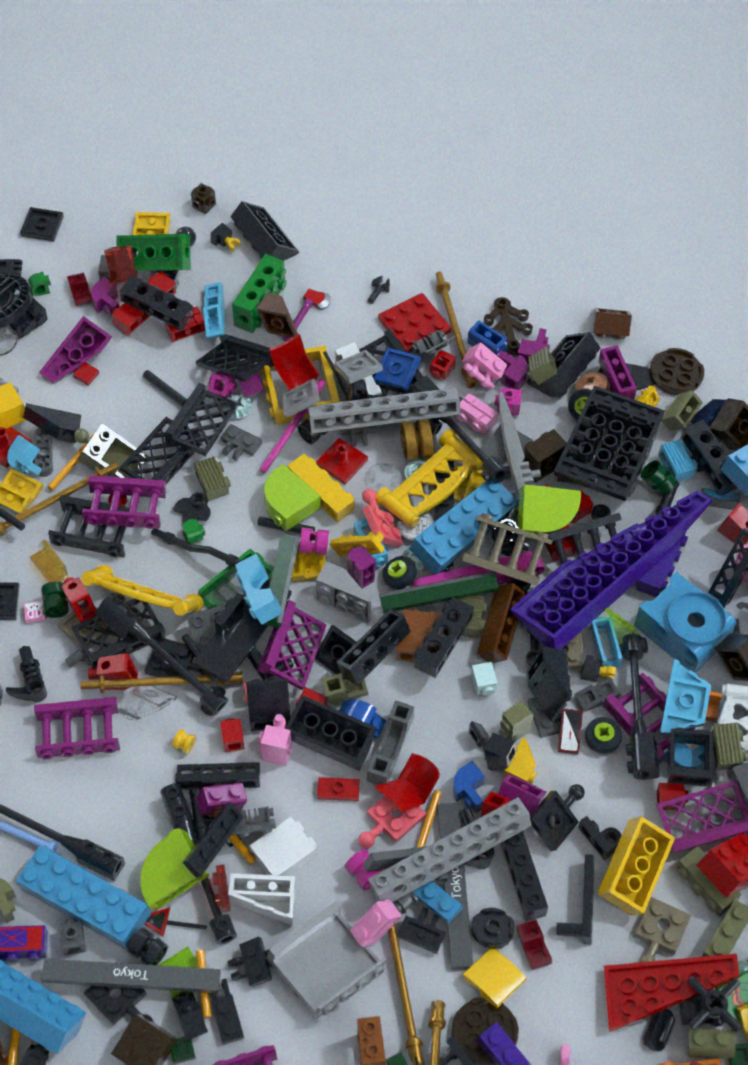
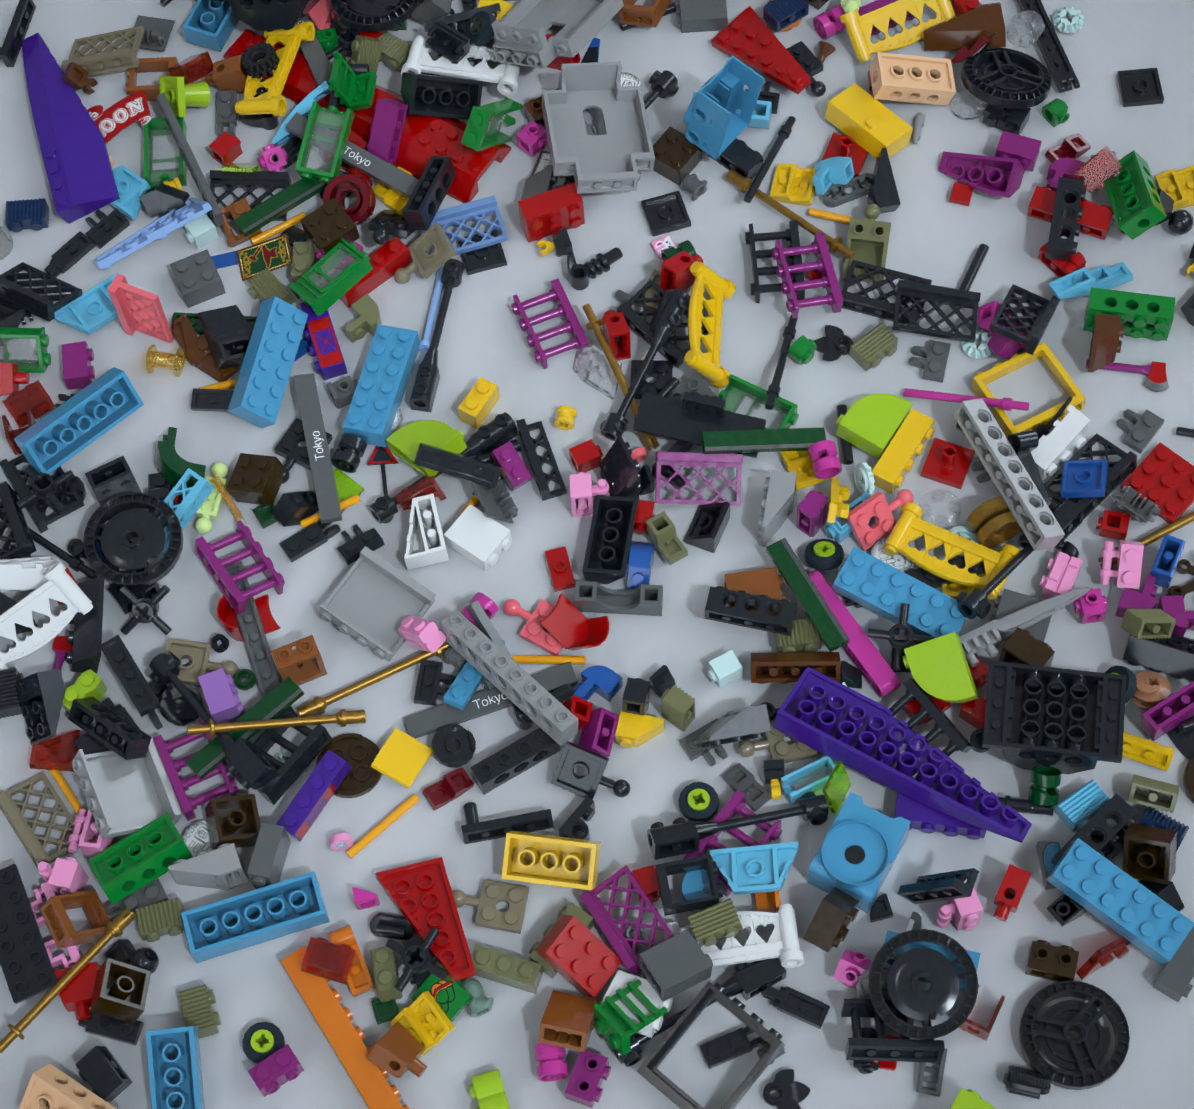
camera: 80 degrees right, 5 degrees up
(49, 564) = (720, 241): clear yellow panel -> none
(65, 318) = (1019, 148): none -> magenta brick
(138, 812) = (478, 403): none -> yellow brick
(262, 601) = (752, 410): medium azure arch -> none
(293, 363) = (1035, 372): red piece -> none
(300, 398) = (994, 390): light grey tile -> none
(344, 525) = (864, 478): none -> light aqua gear
(358, 366) = (1054, 431): light grey tile -> none
(361, 324) = (1142, 432): none -> dark grey hinge
(373, 647) = (713, 546): black brick -> none
(510, 568) = (854, 641): dark tan fence -> none
(556, 1014) = (382, 826): none -> light orange bar
(570, 731) = (691, 766): slope -> none
(630, 1048) = (365, 899): none -> dark pink slope

